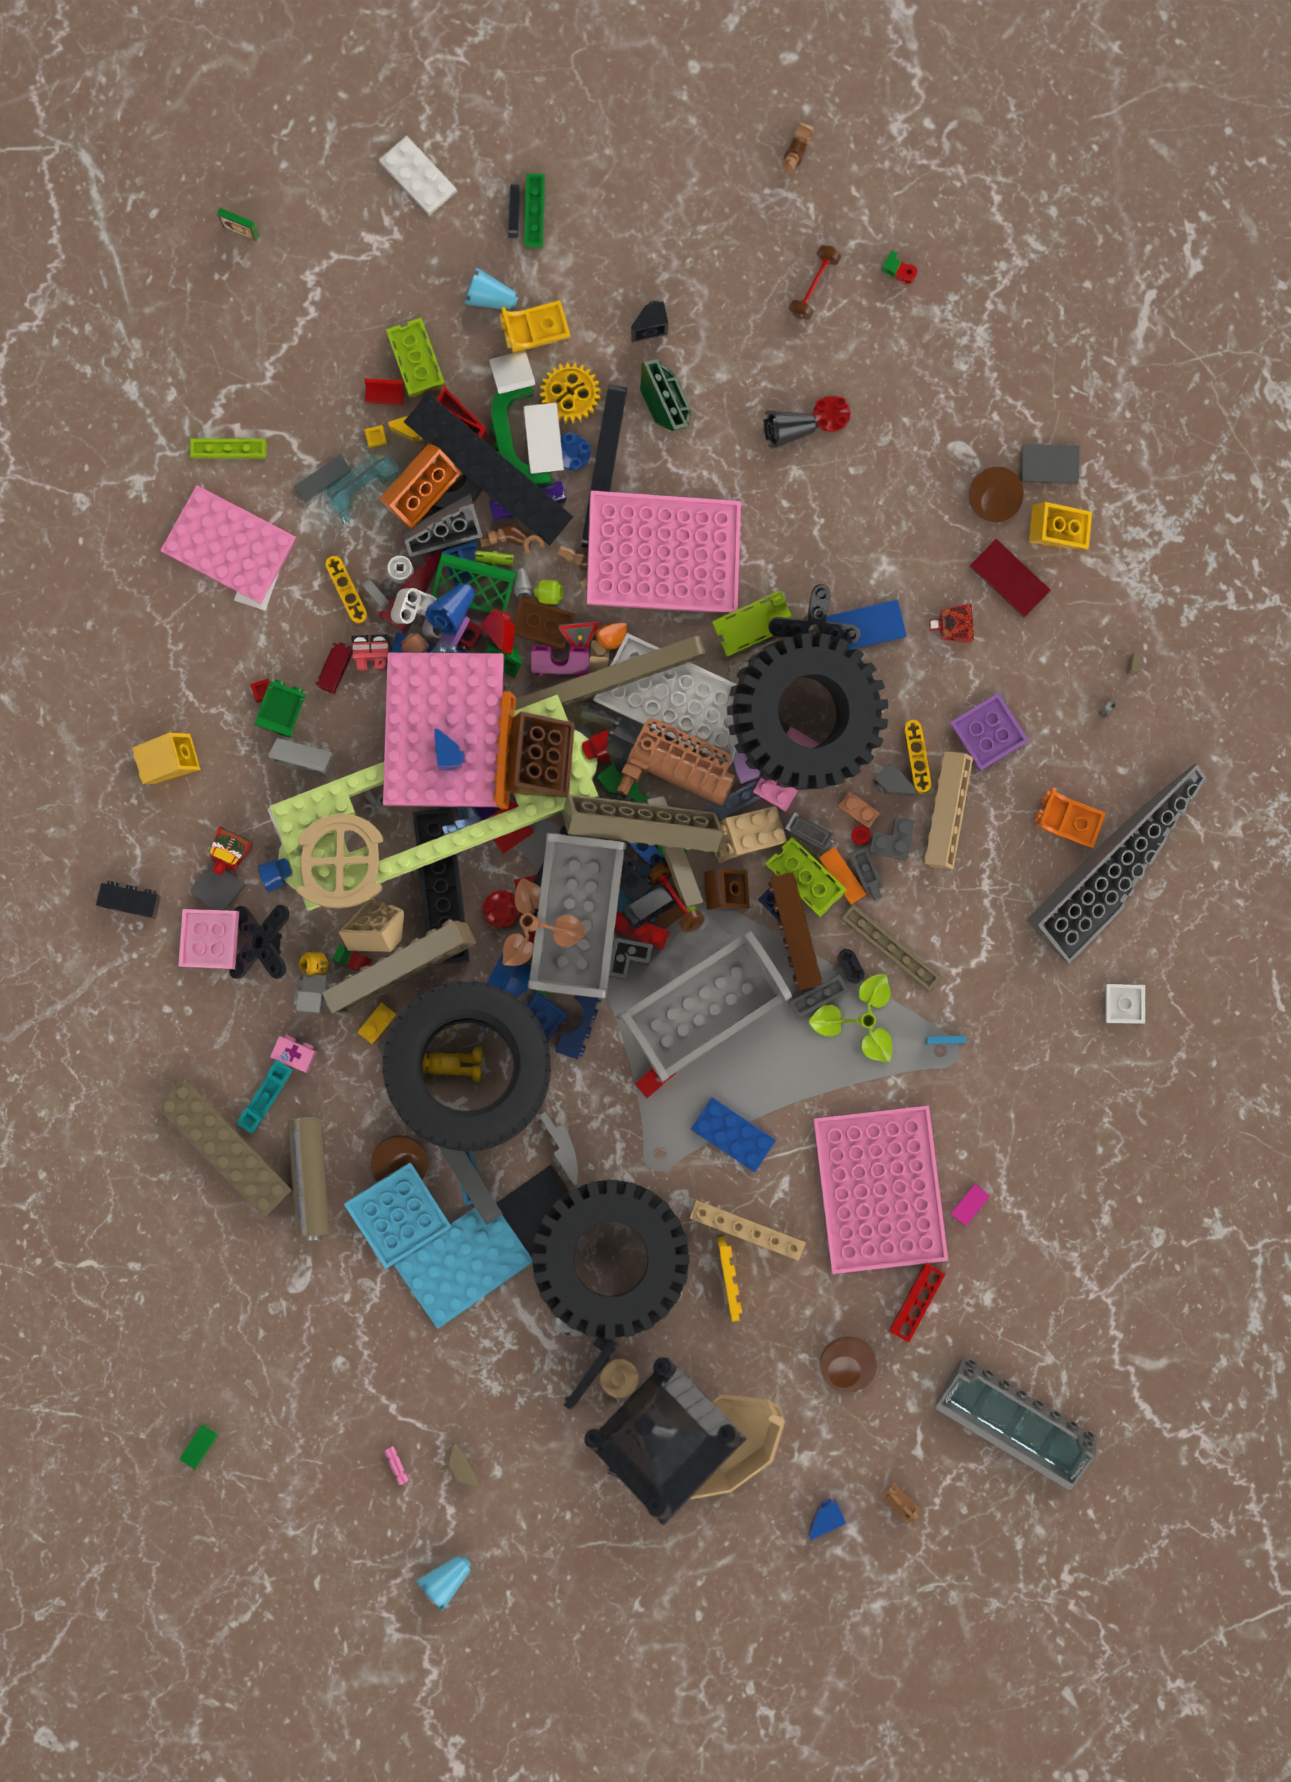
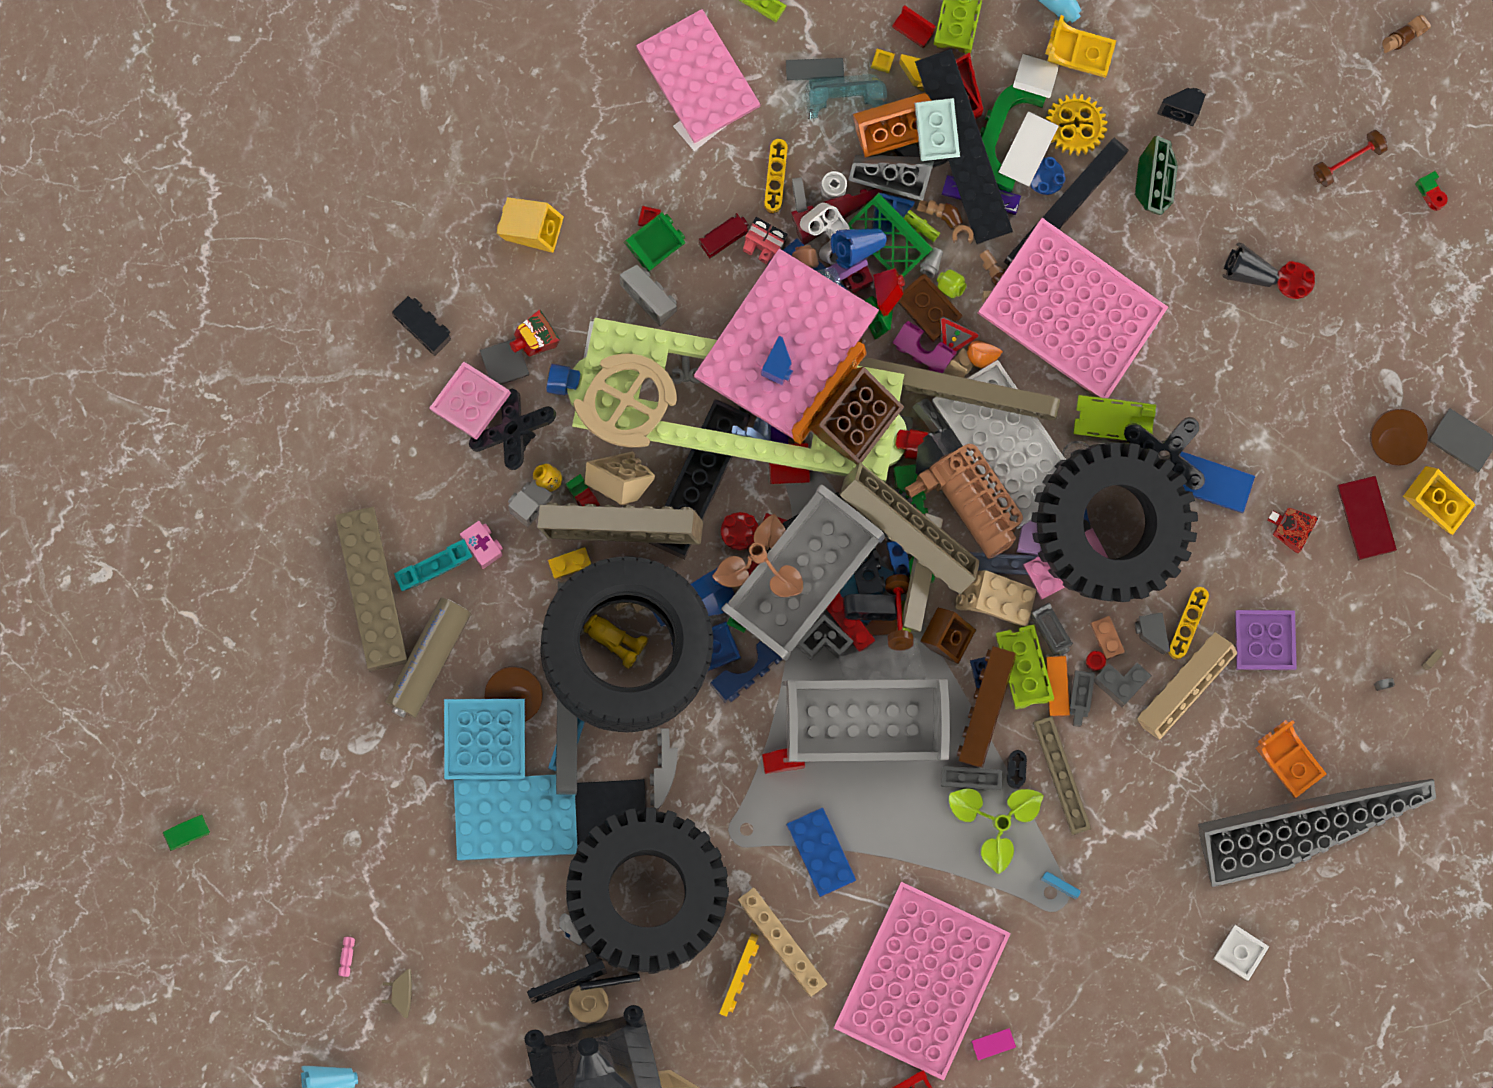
camera: 25 degrees right, 5 degrees down
(457, 469) = (937, 129): none -> light aqua tile
(625, 1351) = (609, 981): none -> black bar

